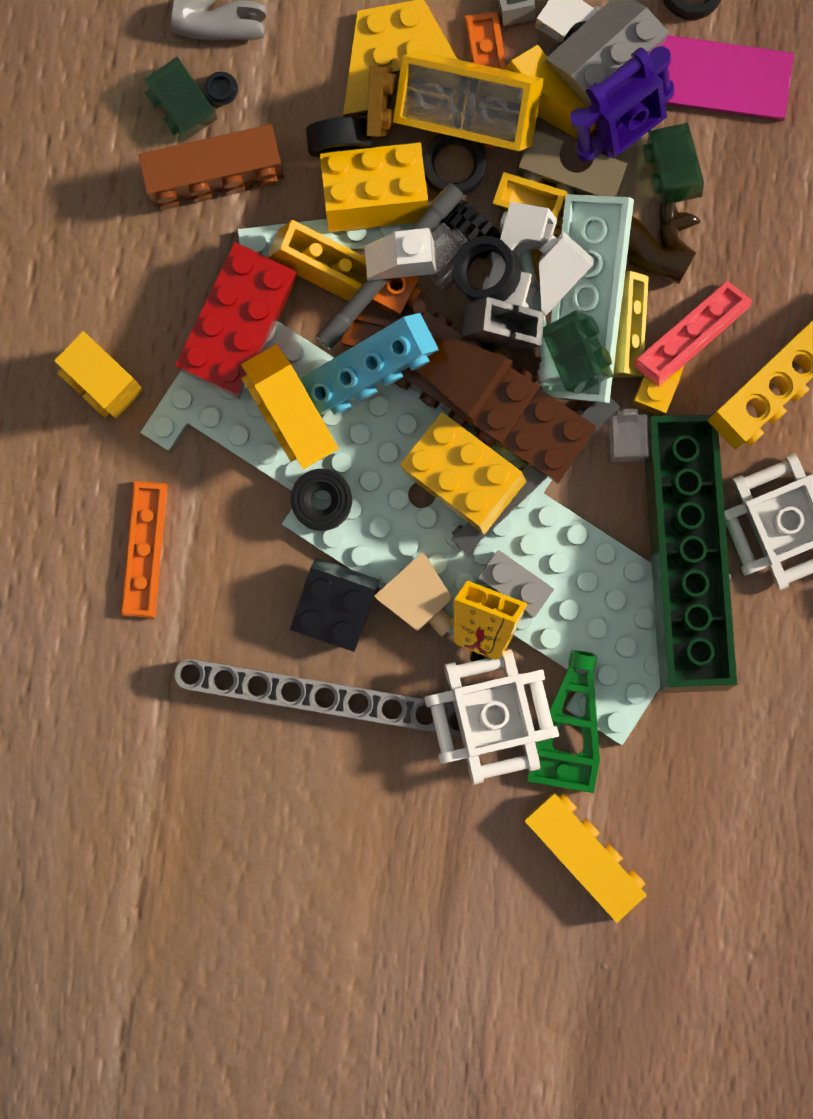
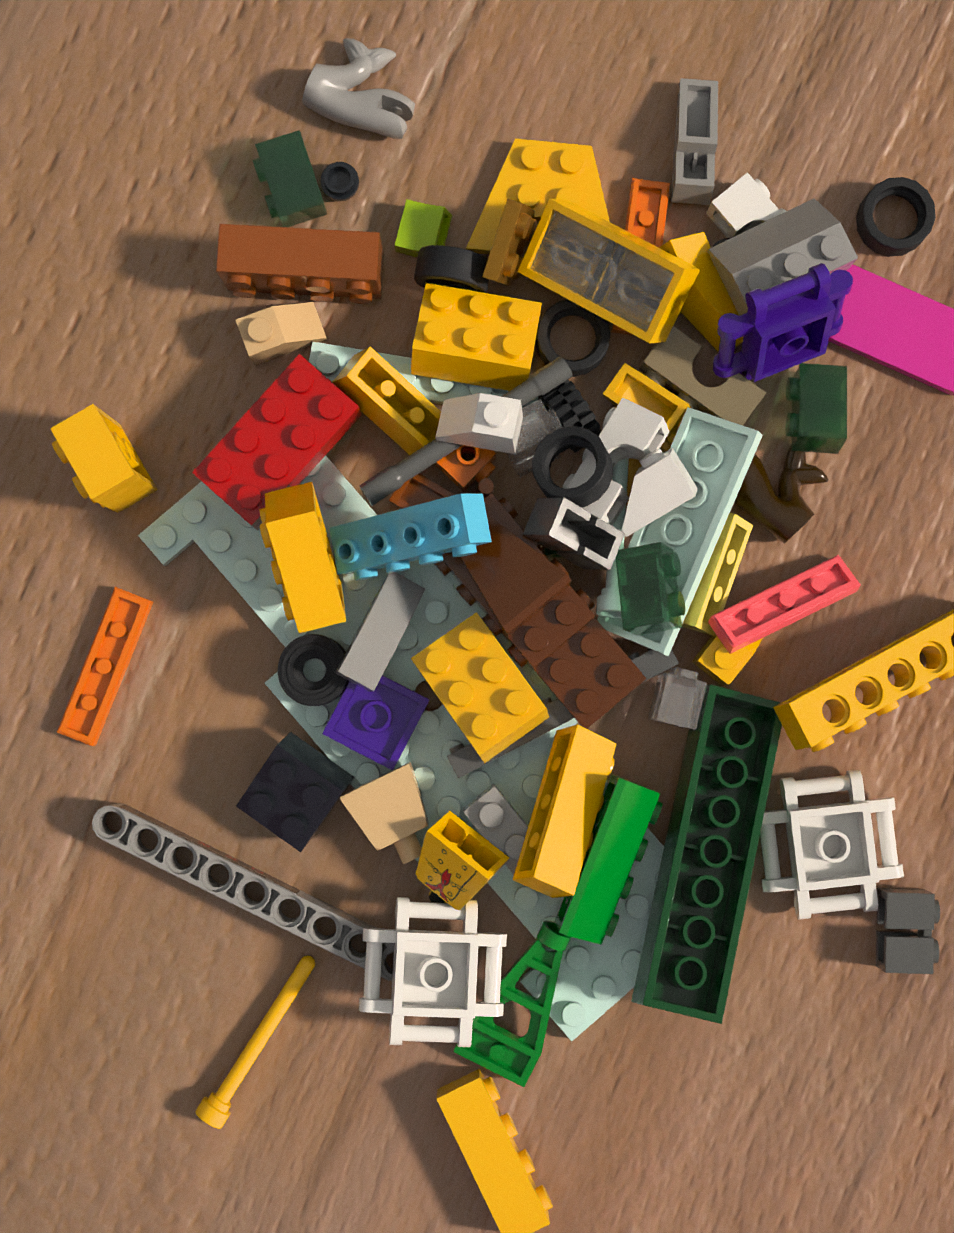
camera: 20 degrees right, 0 degrees up
(209, 227) = (280, 330): none -> tan slope
(301, 108) = (421, 227): none -> lime piece
(345, 883) = (215, 1108): none -> yellow piece
(367, 452) = (380, 631): none -> light grey slope
(383, 523) = (377, 721): none -> dark purple plate
(562, 552) = (565, 812): none -> yellow brick
(608, 583) = (607, 863): none -> green slope

